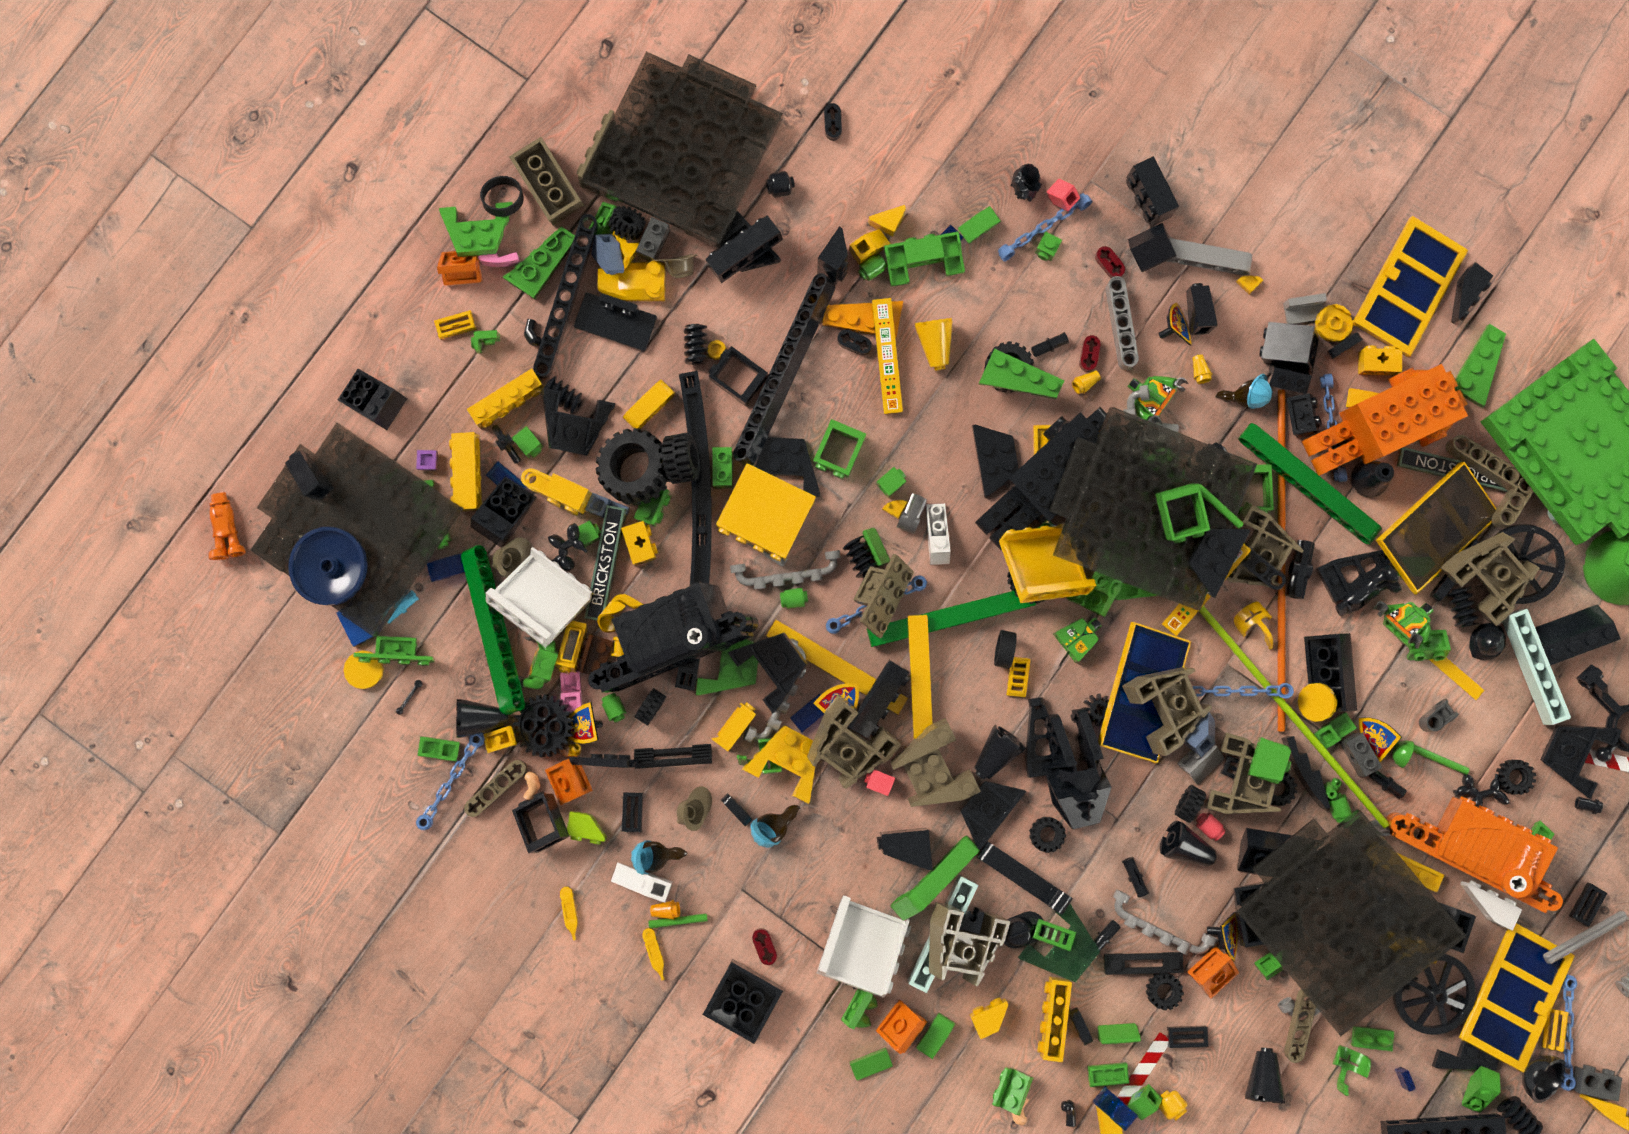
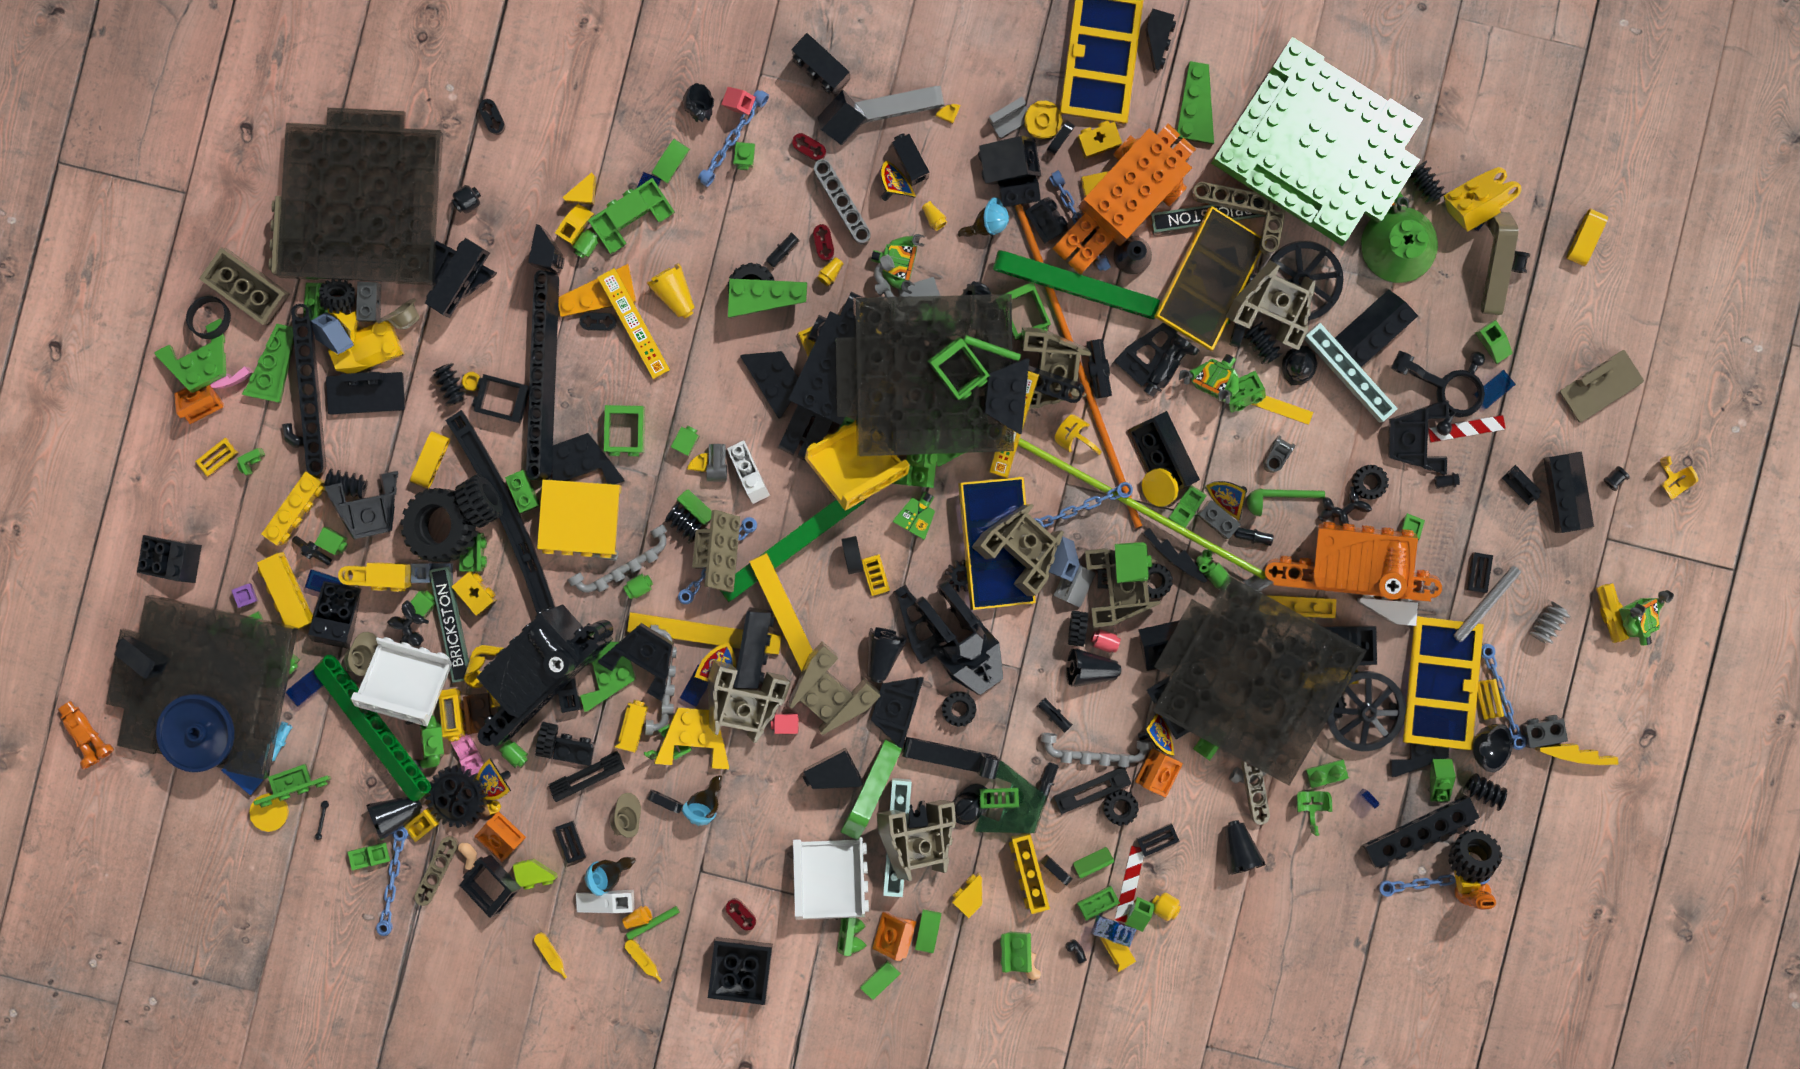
camera: 15 degrees left, 5 degrees up
(608, 760) = (528, 805): black wing -> none
(670, 726) = (574, 750): none -> black bracket

